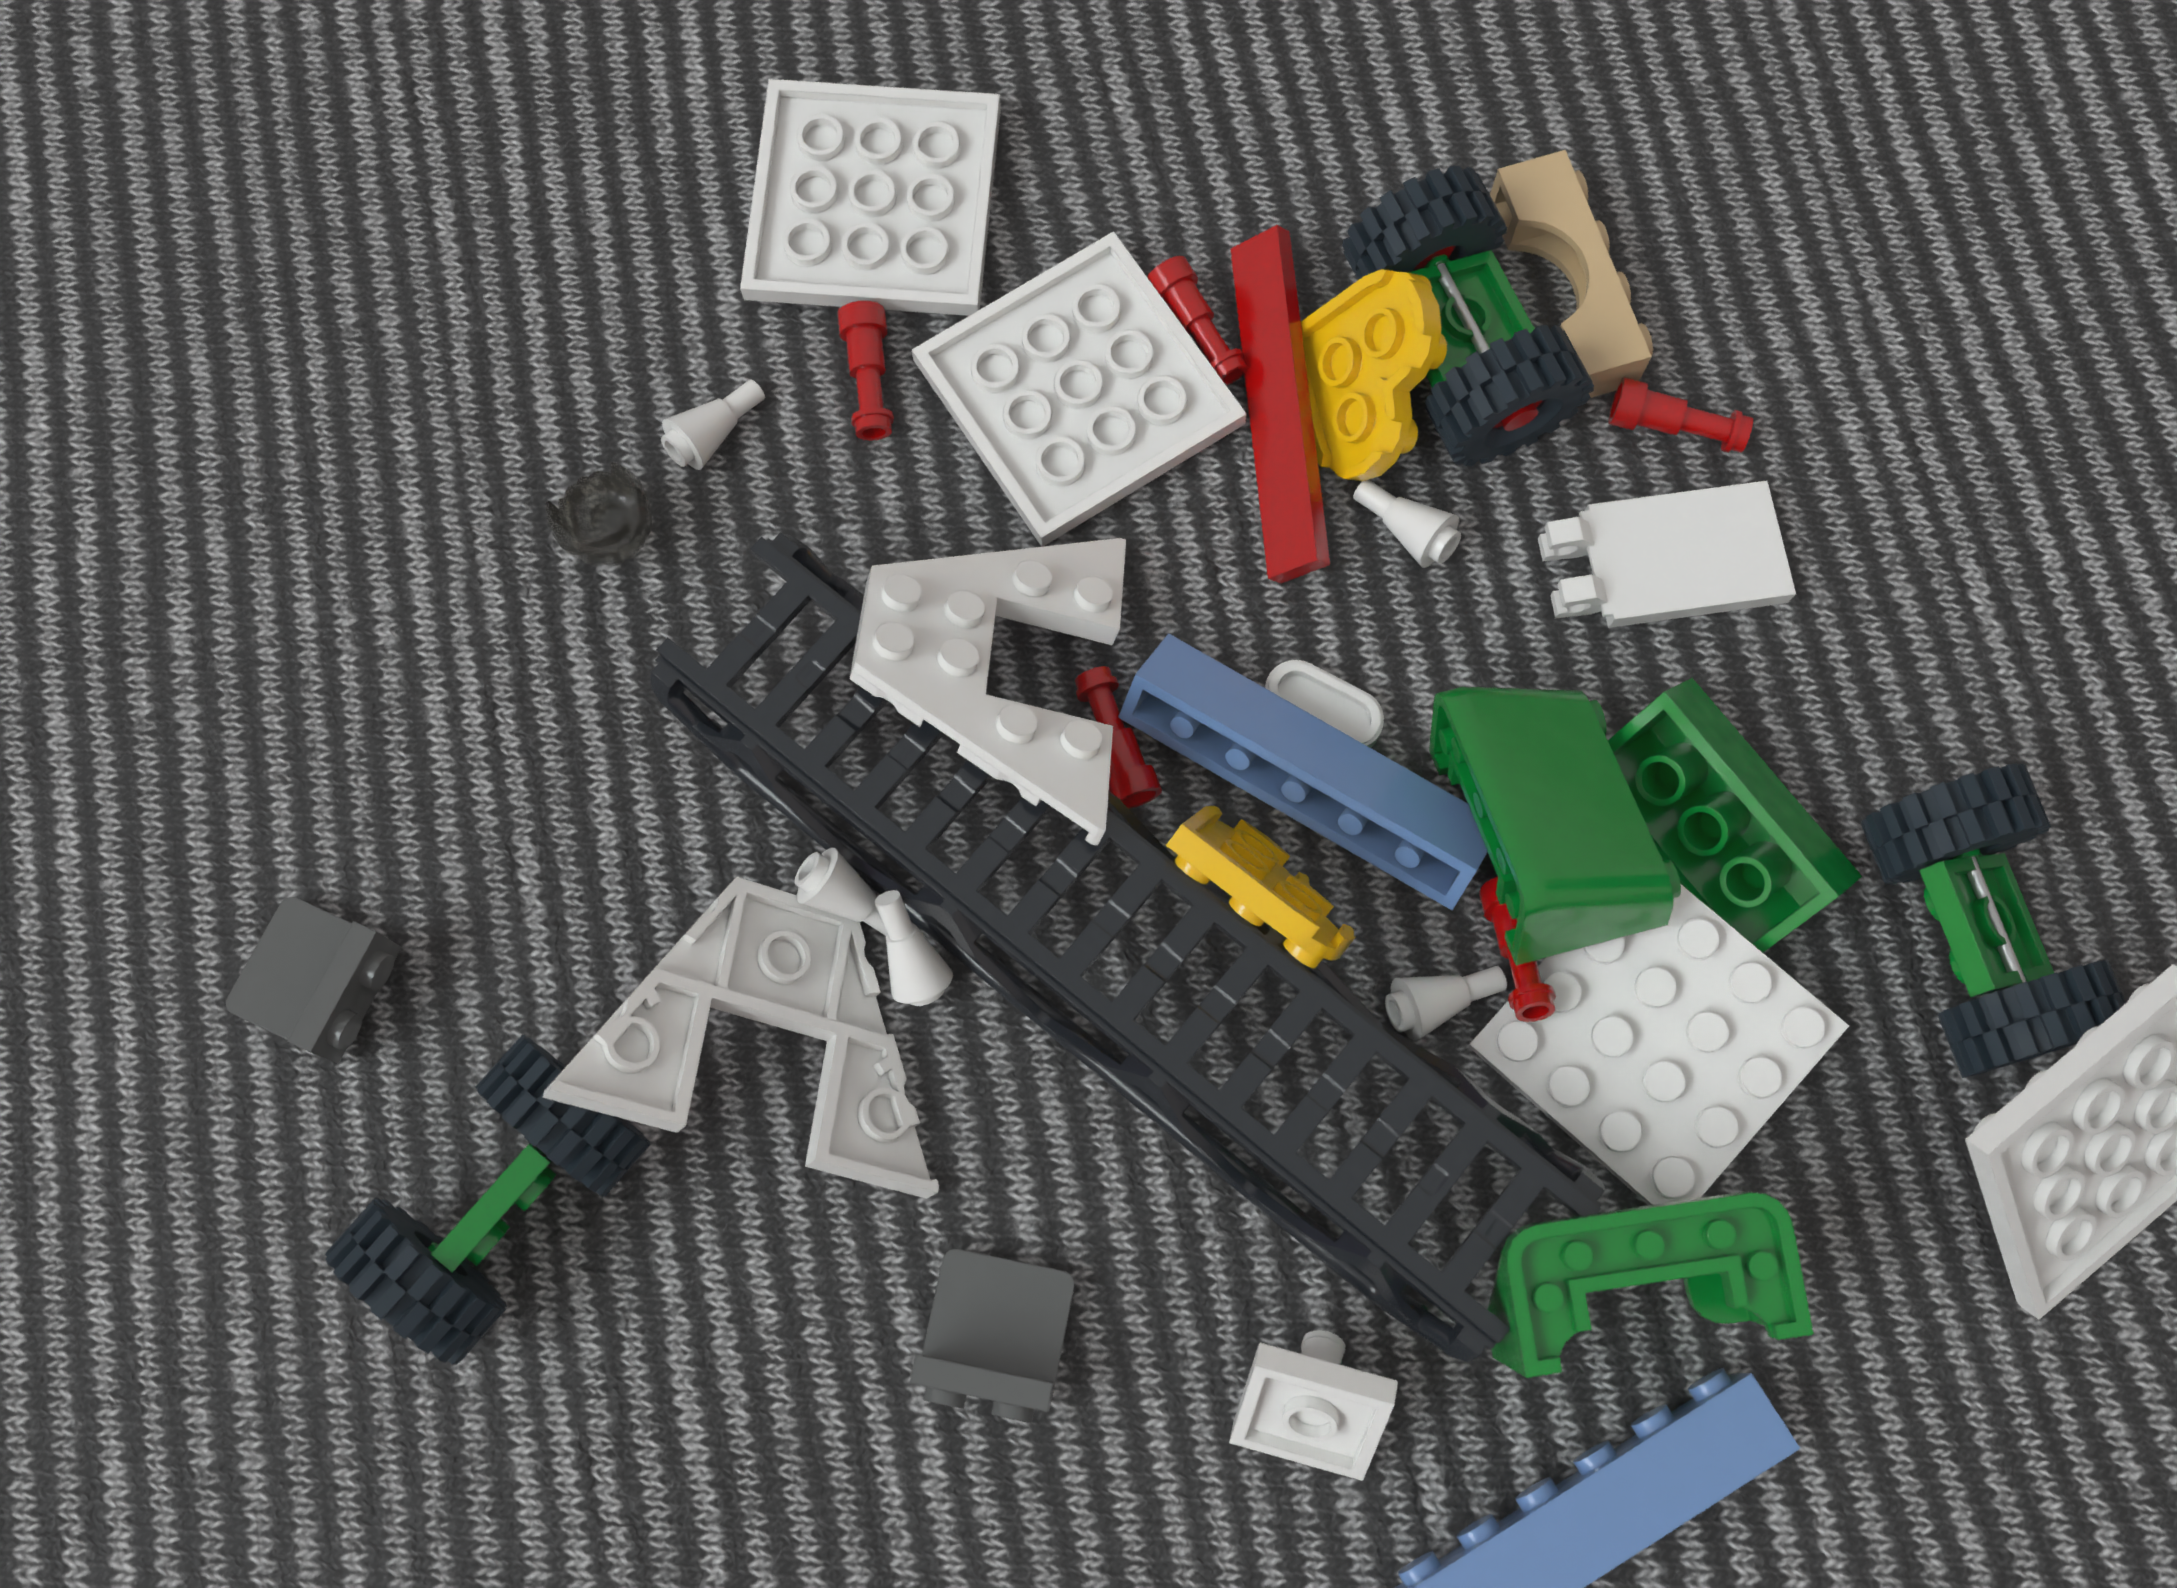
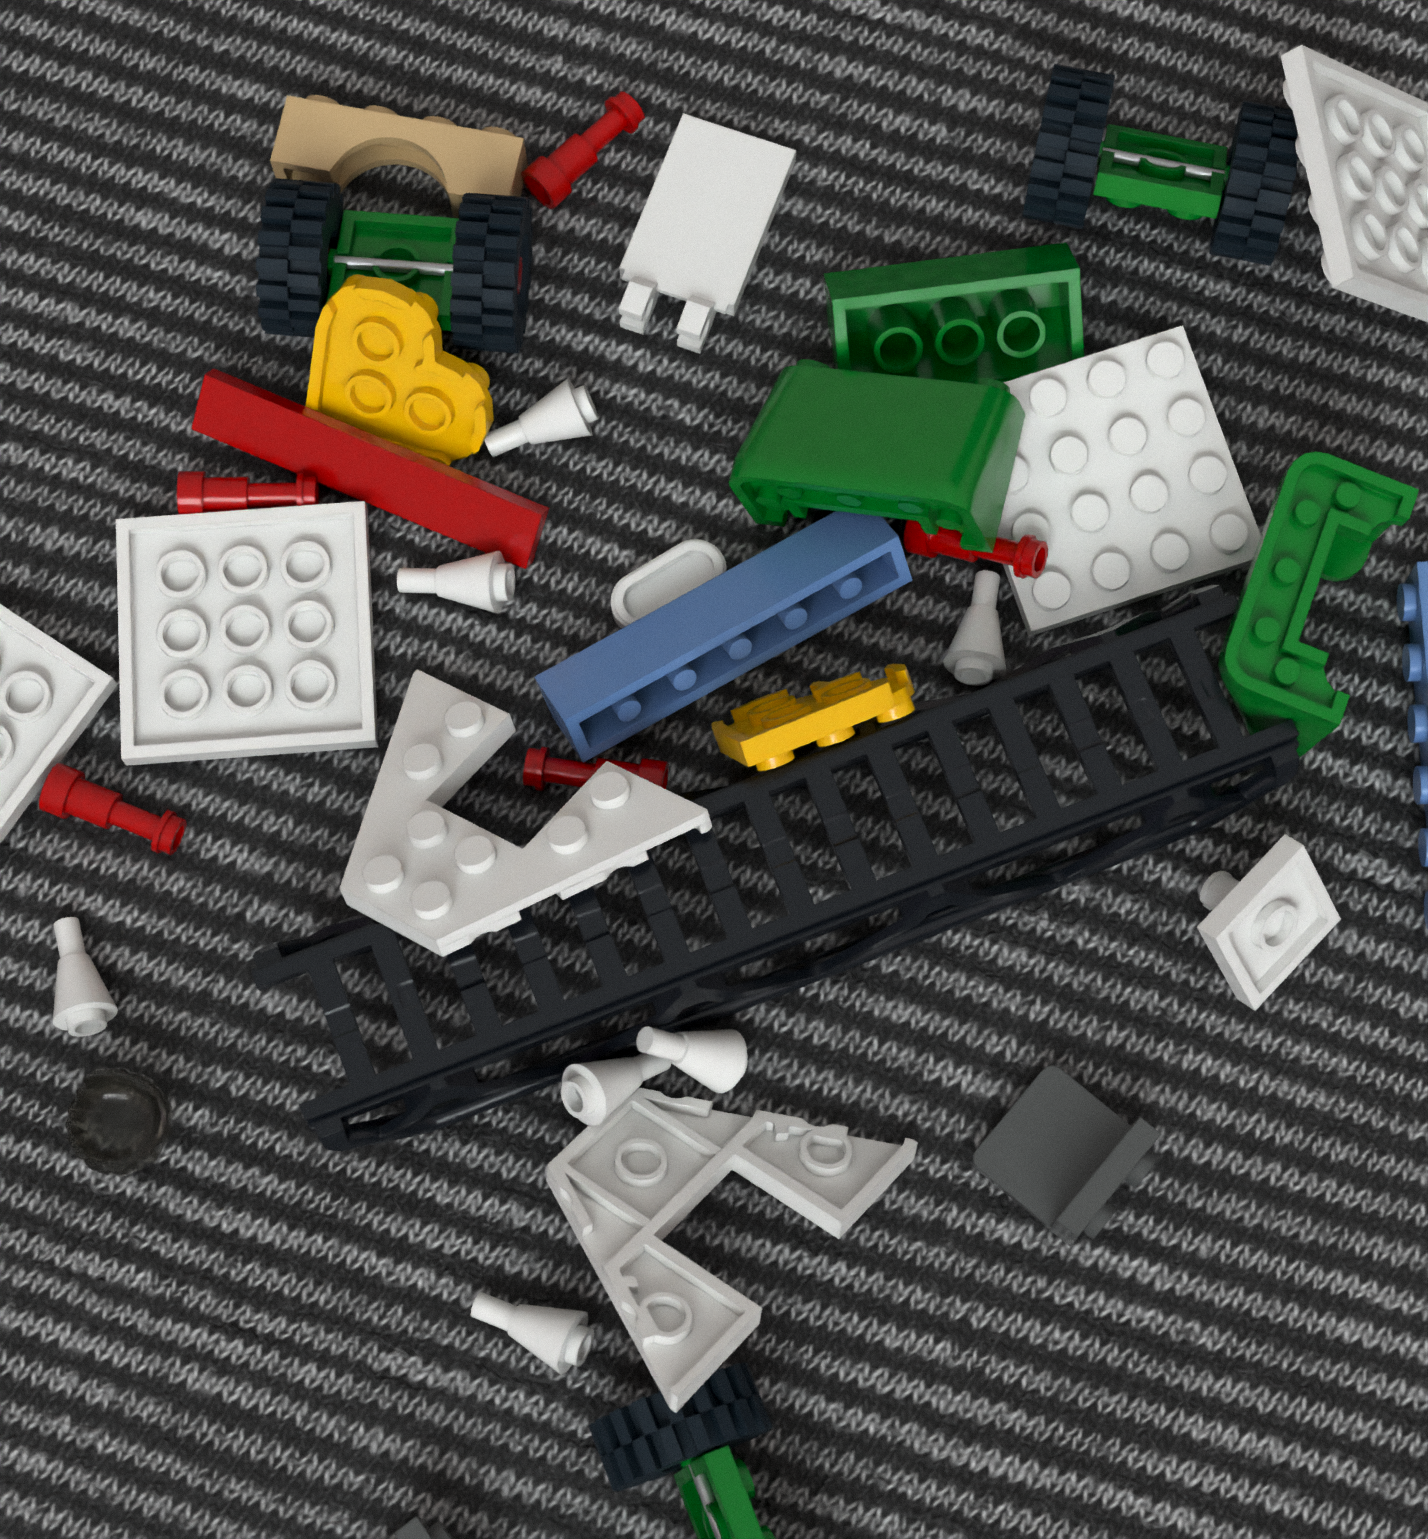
camera: 60 degrees left, 0 degrees up
(605, 964) = (550, 1333): none -> white cone
(1231, 544) = (474, 581): none -> white cone

